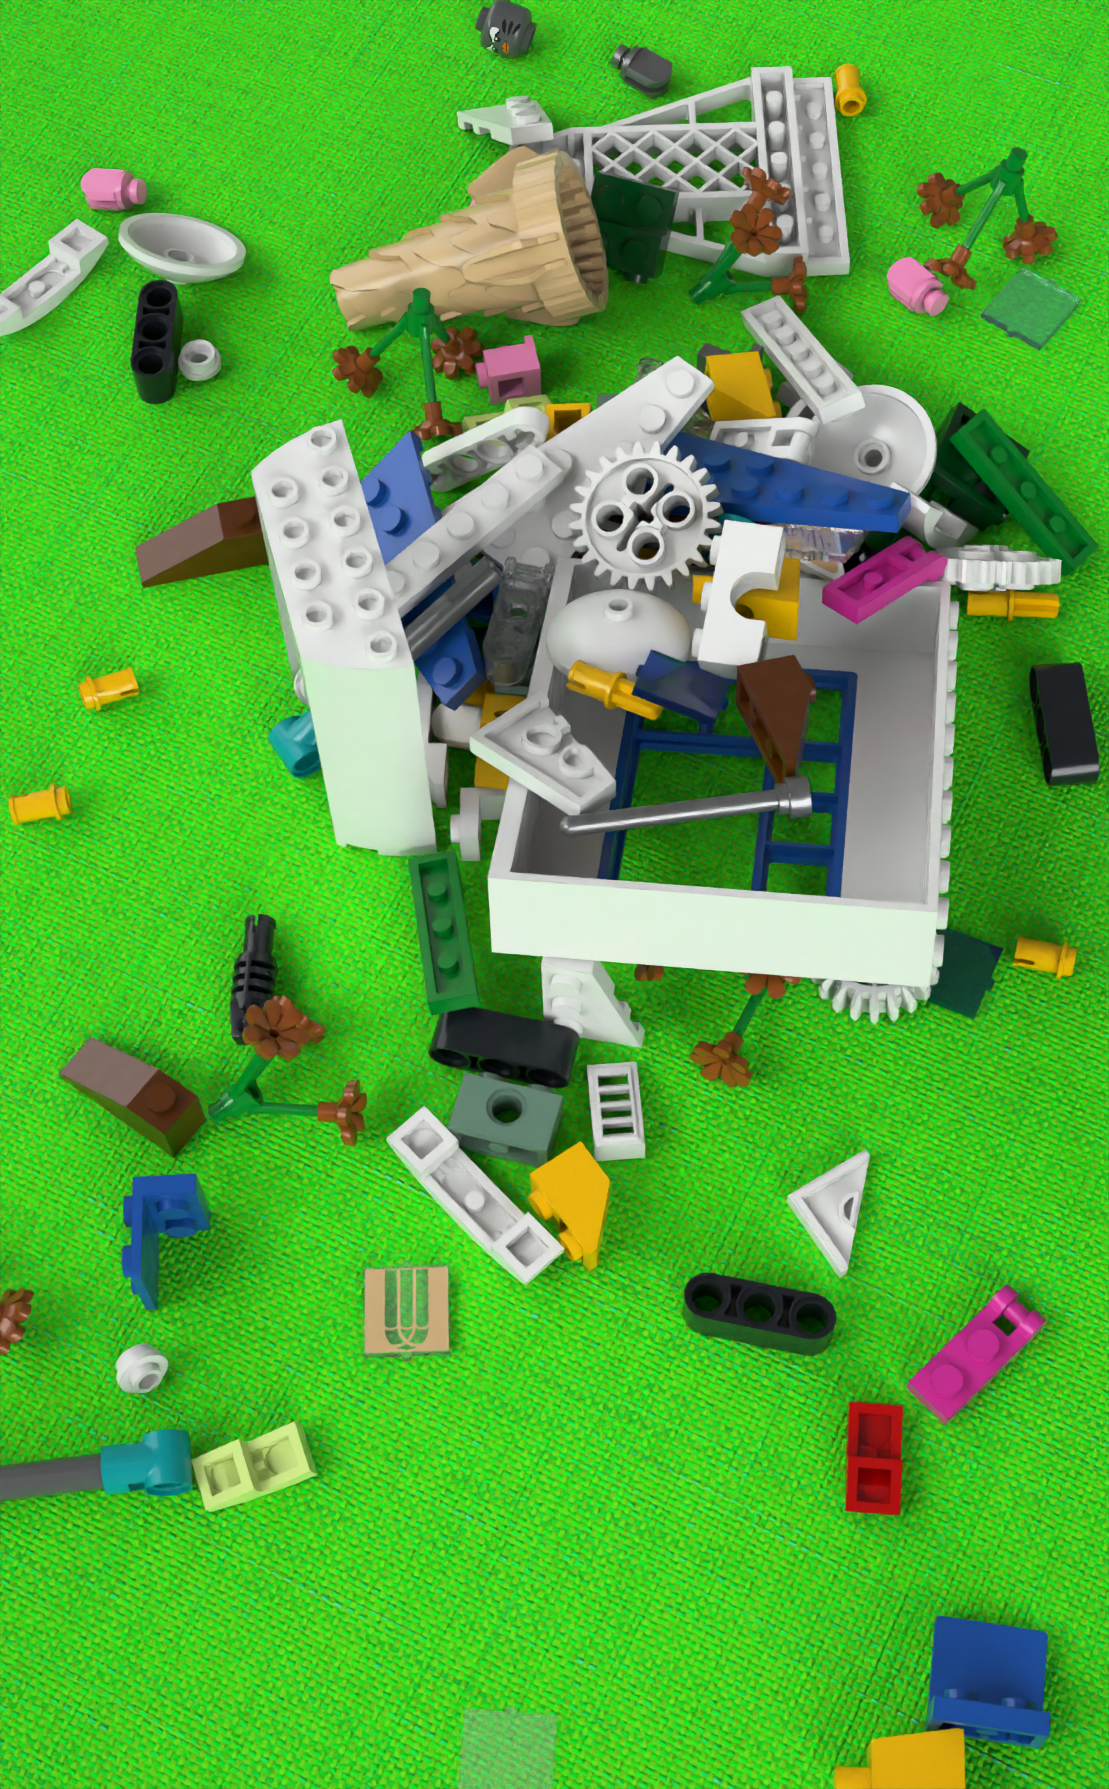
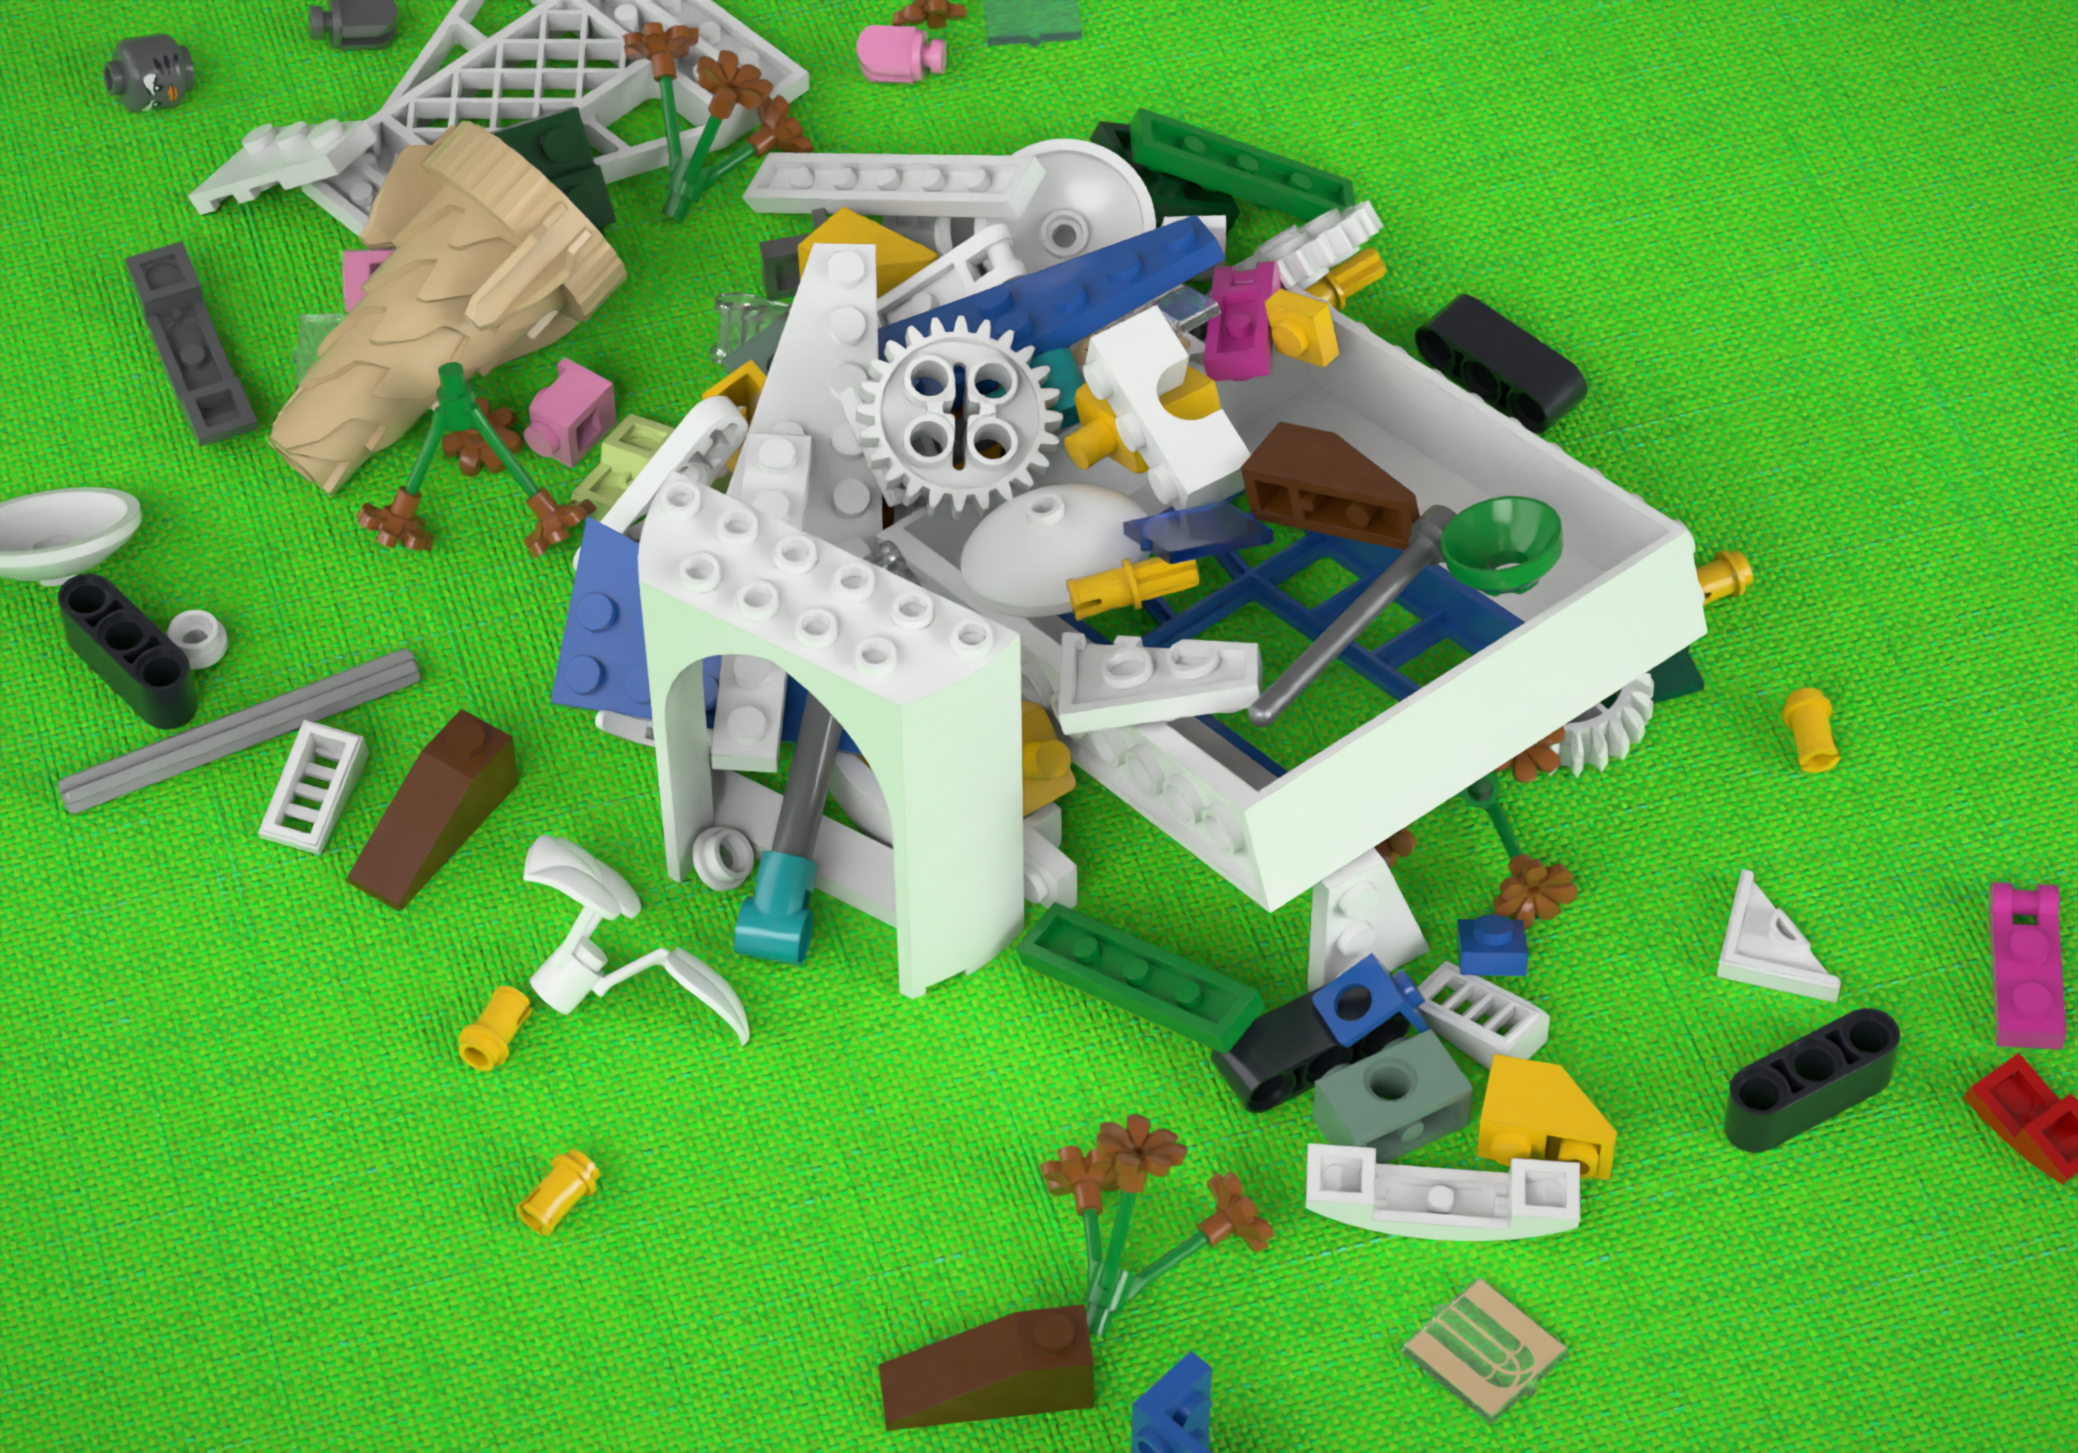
camera: 45 degrees left, 10 degrees down
(161, 424) = (238, 731): none -> light grey axle
(164, 634) = (579, 962): none -> white plant
(187, 492) = (311, 742): none -> white slope
(253, 973) = (993, 1179): black hinge -> none
(368, 196) = (189, 345): none -> dark grey slope
(560, 1054) = (1388, 993): none -> blue bracket
(666, 1075) = (1492, 946): none -> blue plate
(810, 820) = (1500, 534): none -> green piece
(899, 609) = (1302, 328): none -> yellow plate
(1011, 1087) = (1809, 716): none -> yellow pin

